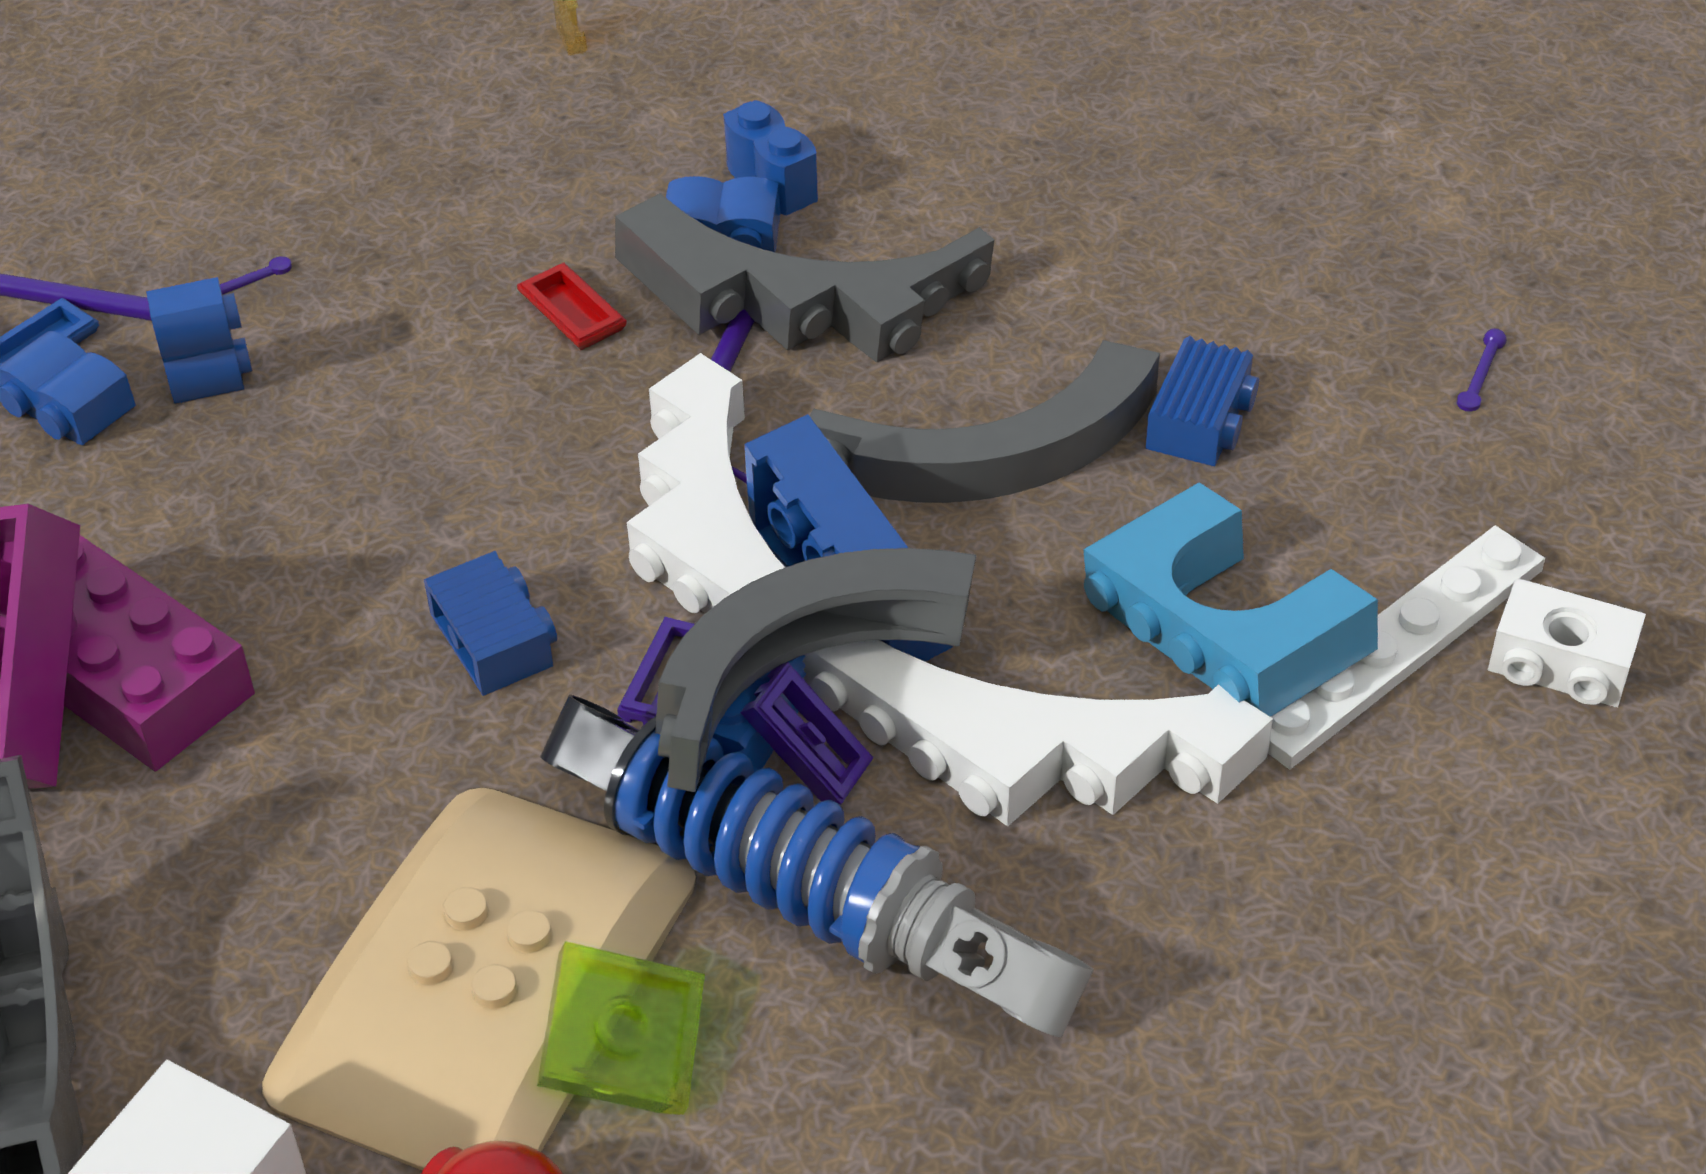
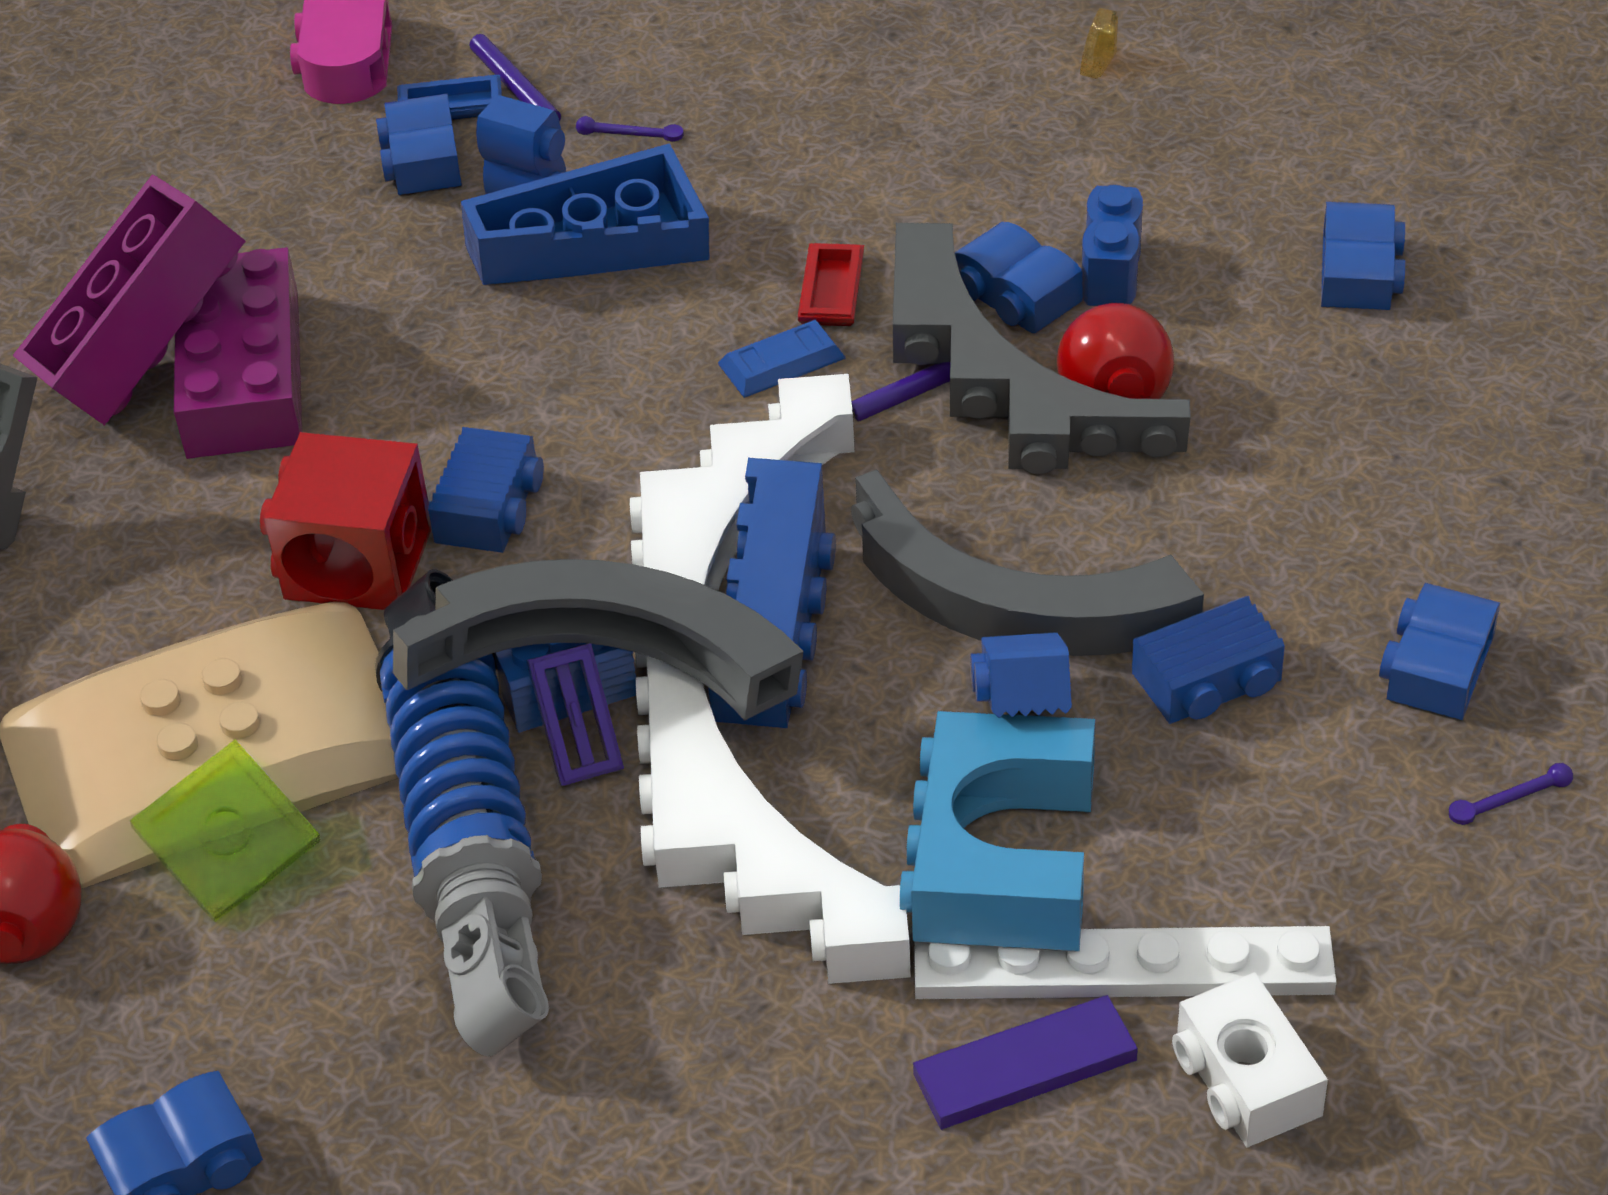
camera: 45 degrees right, 0 degrees up
(319, 363) = (589, 221): none -> blue wedge
(422, 712) = (347, 520): none -> red brick
(600, 384) = (780, 357): none -> blue tile
(877, 223) = (1118, 352): none -> red brick
(950, 72) = (1360, 256): none -> blue brick
(1113, 482) = (1022, 674): none -> blue brick
(1338, 301) = (1439, 650): none -> blue brick
(1420, 756) = (1024, 1061): none -> dark purple tile

